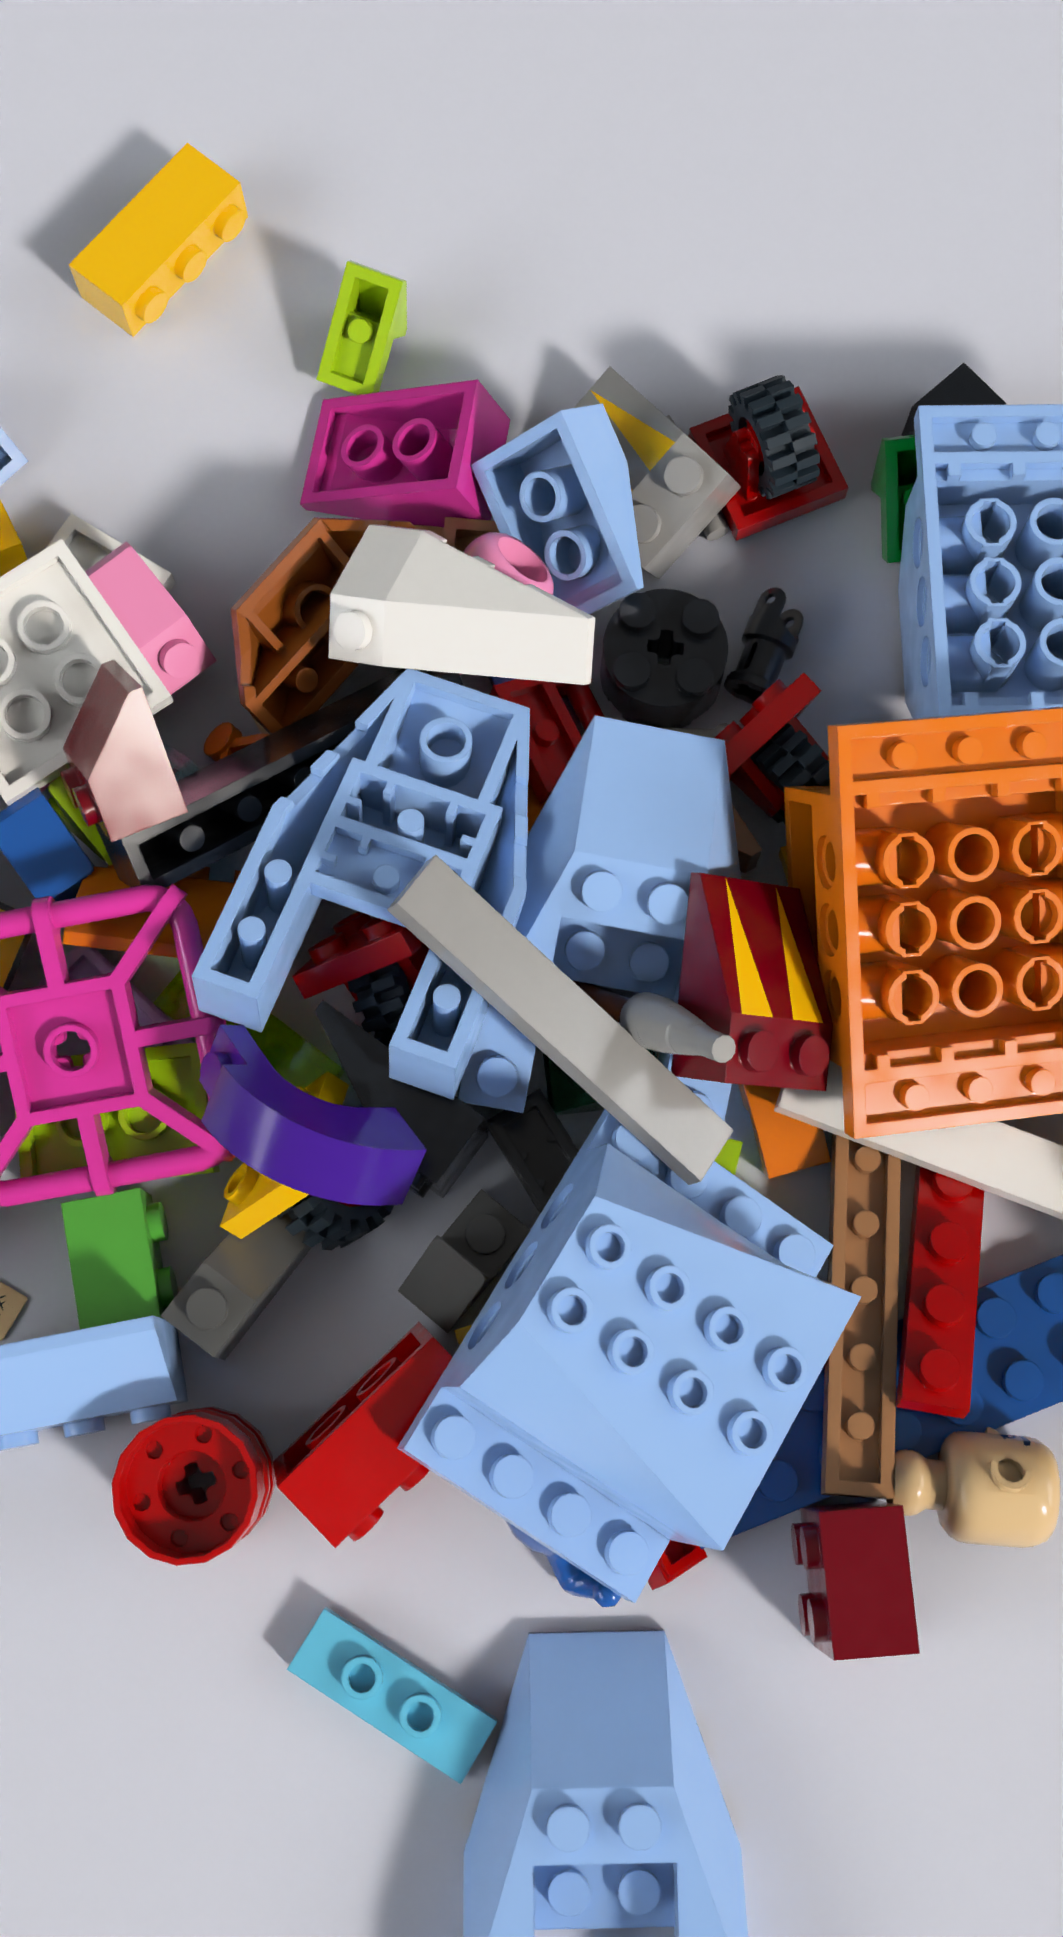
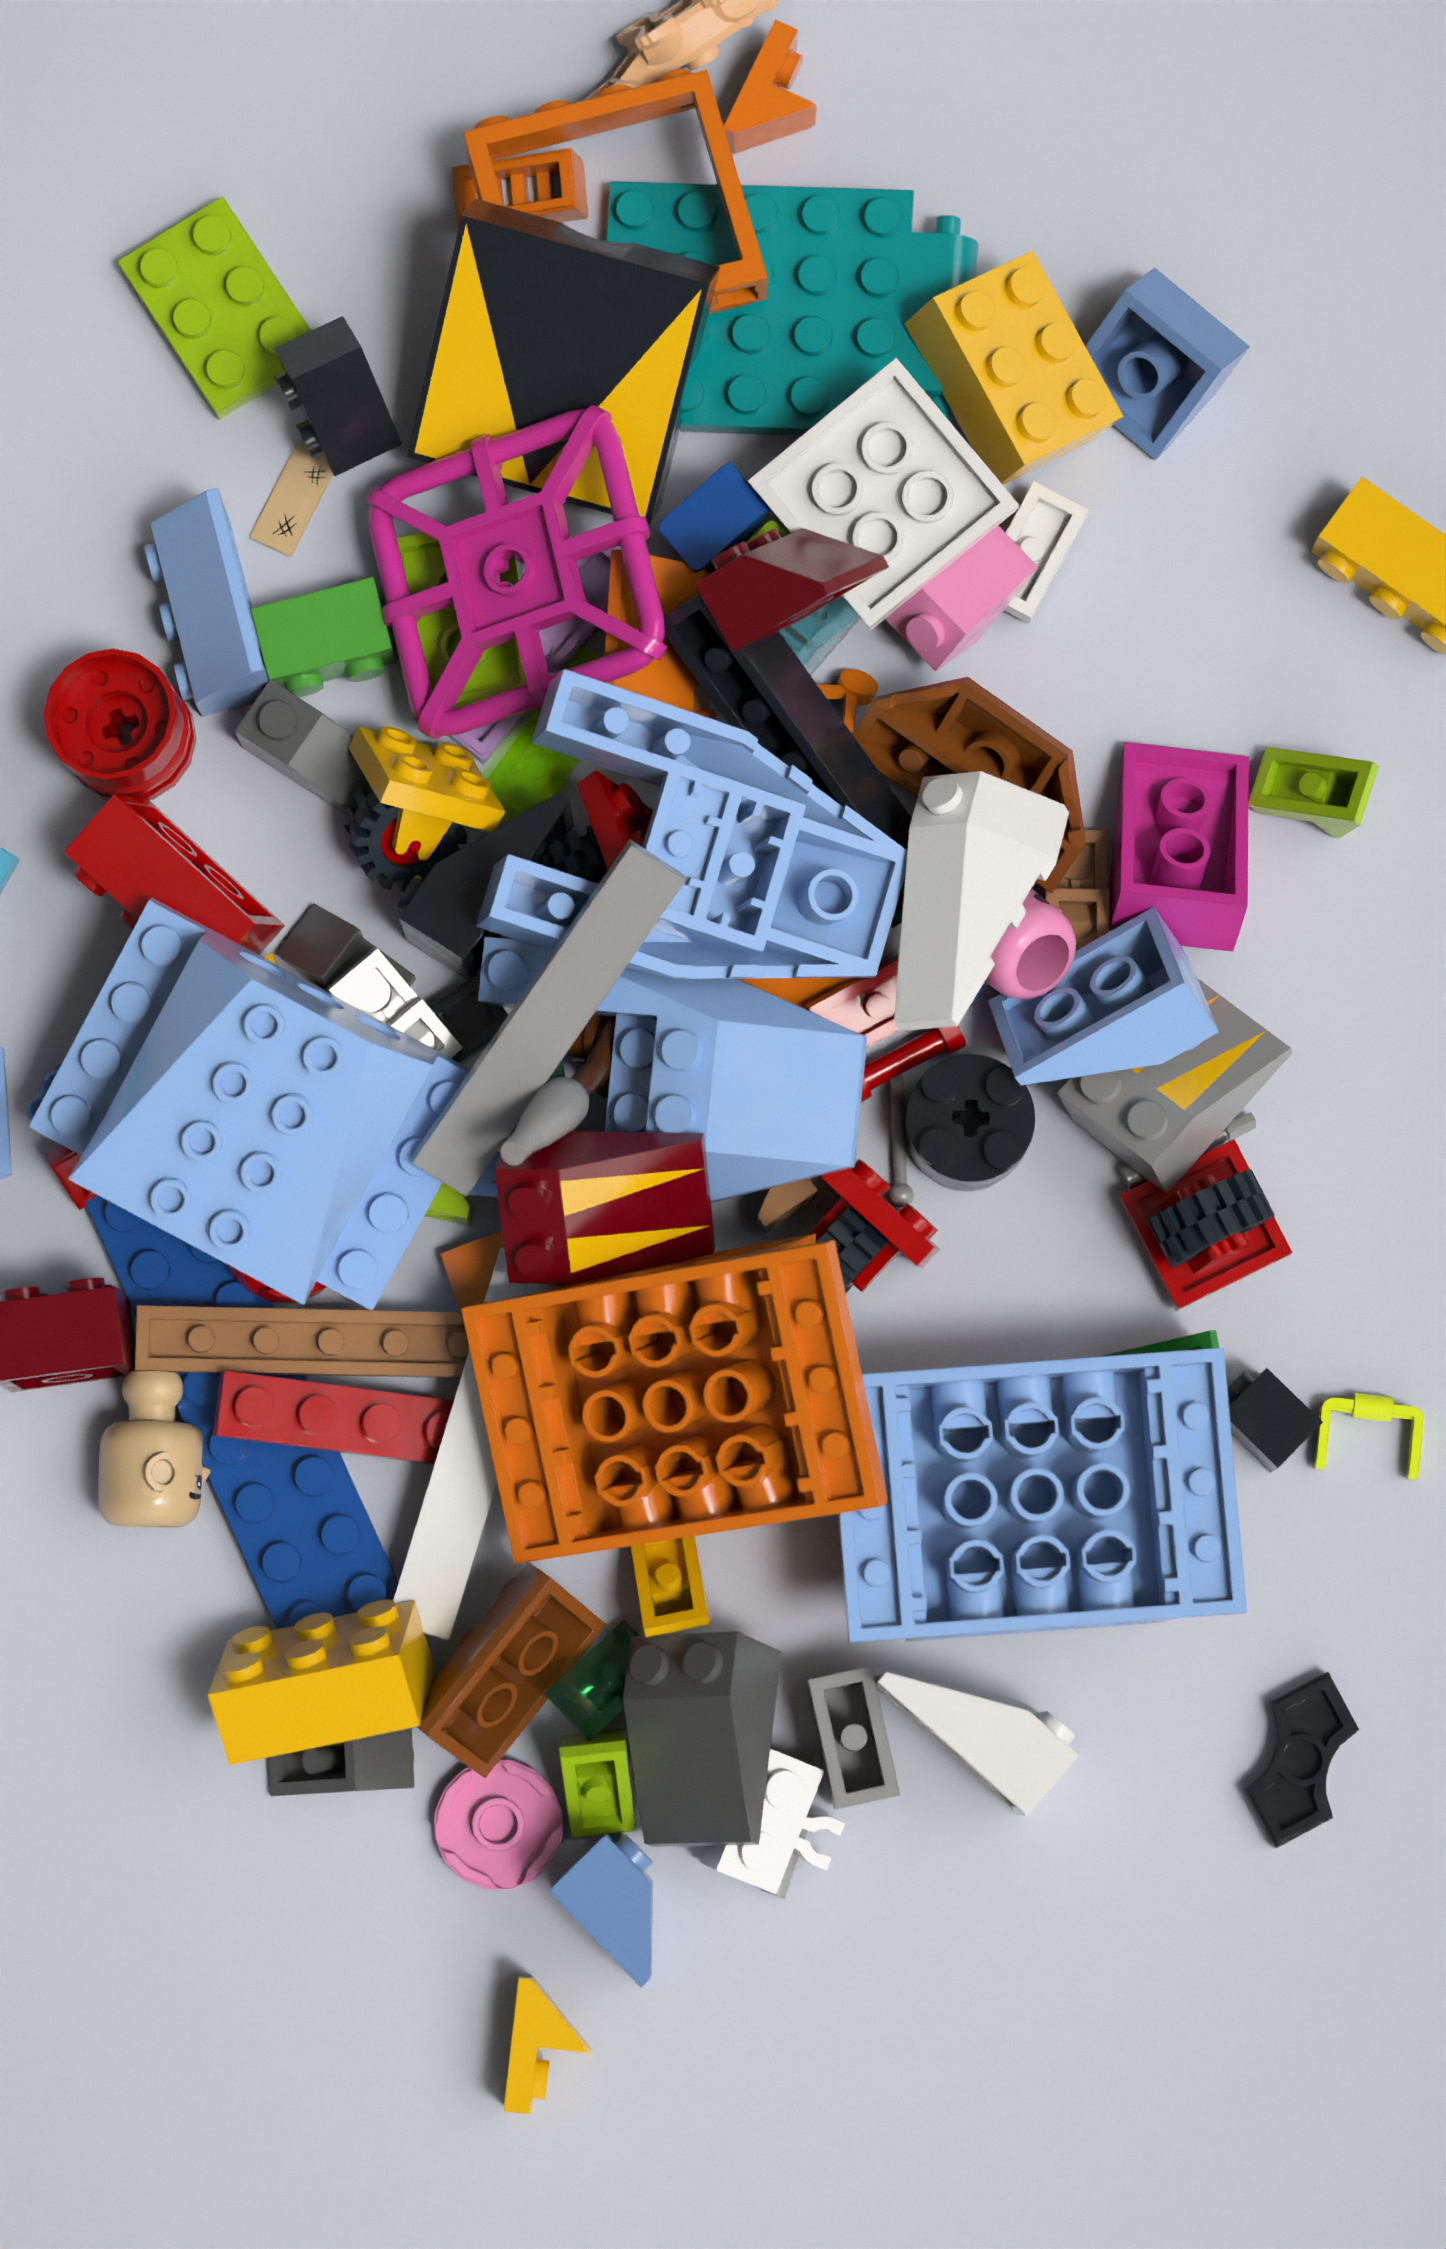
camera: 85 degrees right, 5 degrees up
(300, 1139) = (421, 782): dark purple arch -> none
(504, 1218) = (383, 993): none -> white slope
(766, 646) = (996, 1231): black piece -> none
(940, 328) = (1371, 1408): none -> neon yellow piece

